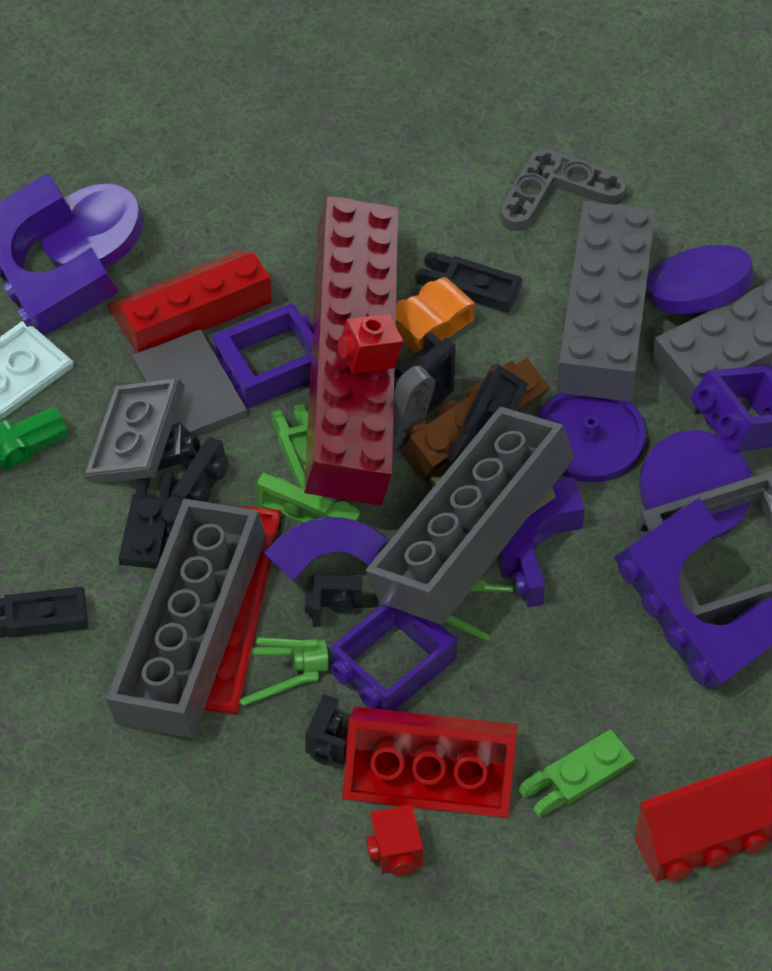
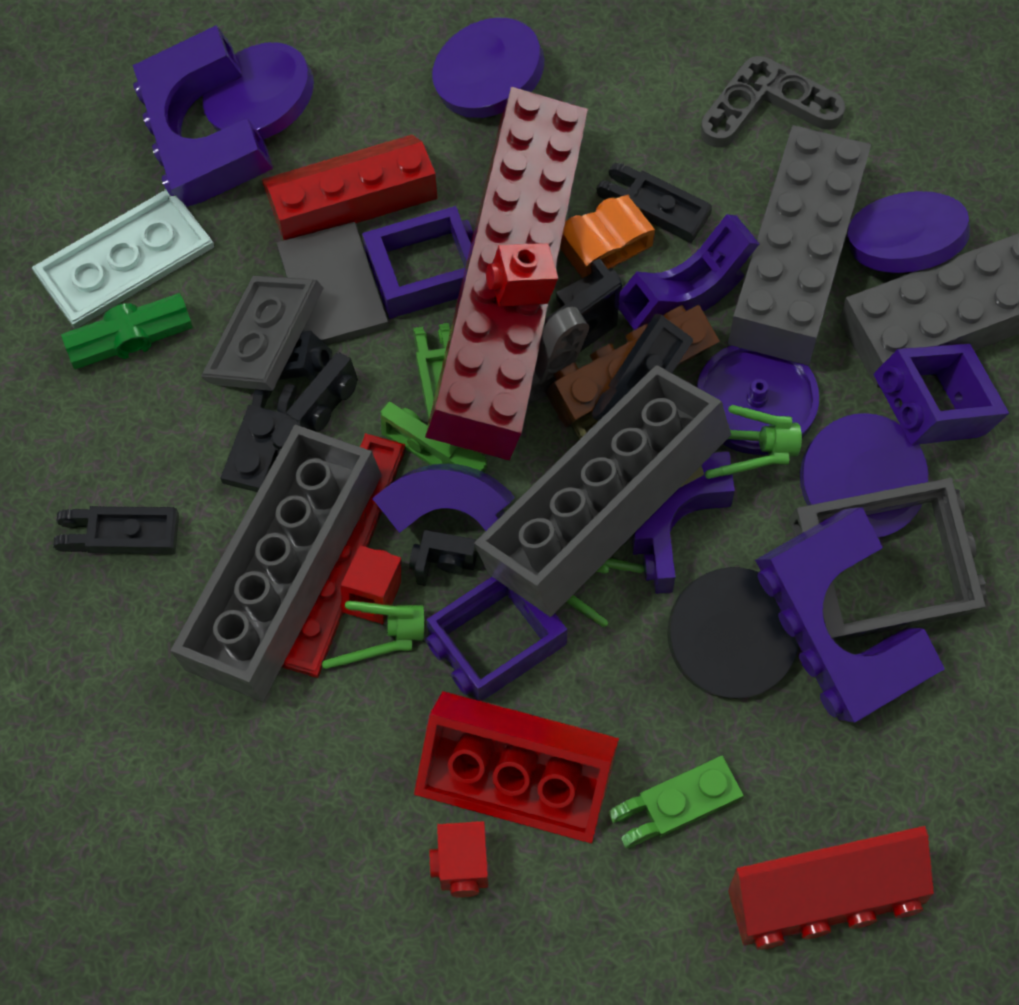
camera: 10 degrees right, 10 degrees up
(273, 619) = (371, 578): none -> red brick
(294, 182) = (483, 63): none -> dark purple piece
(323, 731) = (406, 708): black bracket -> none
(527, 336) = (697, 281): none -> dark purple arch
(600, 628) = (729, 635): none -> black piece
(617, 462) = (779, 439): none -> bright green plant

